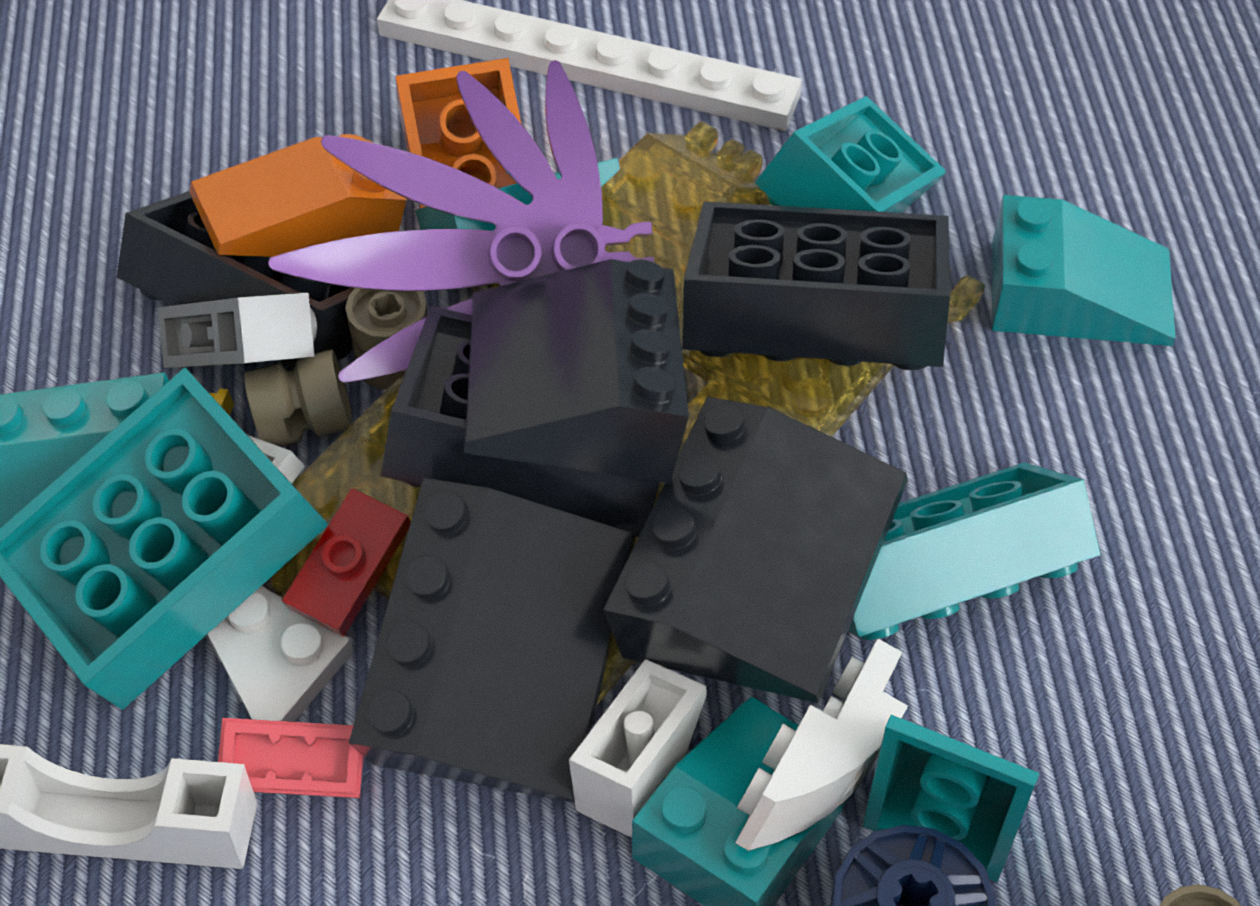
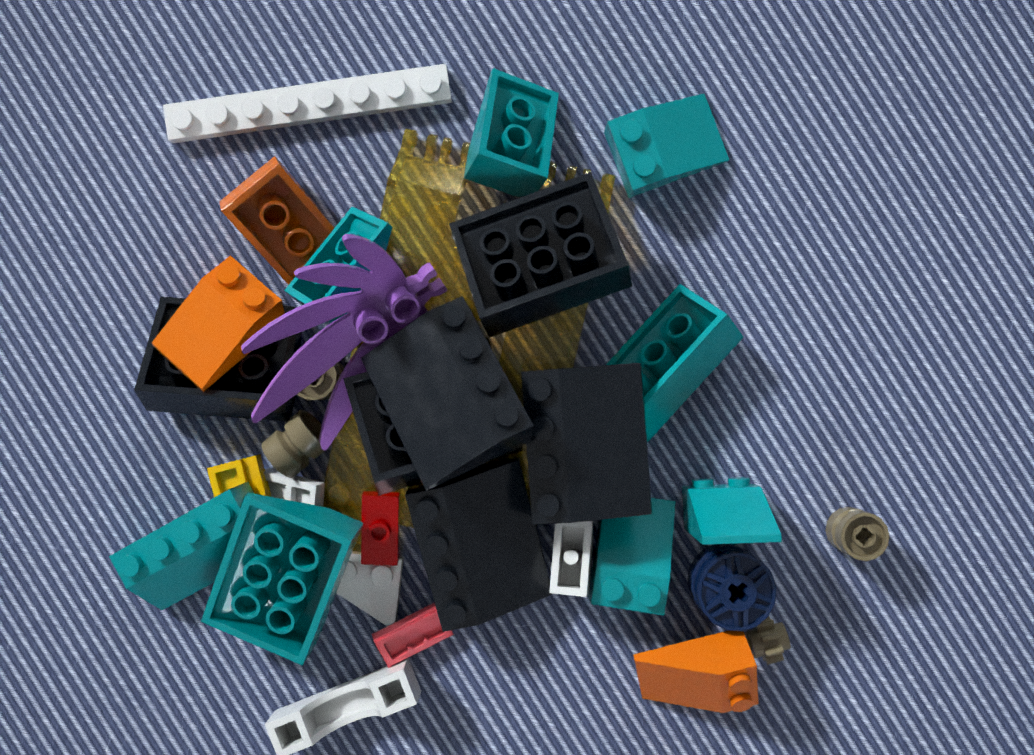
camera: 25 degrees left, 35 degrees up
(237, 330) = (235, 432): light grey slope -> none
(824, 756) = (664, 535): white slope -> none

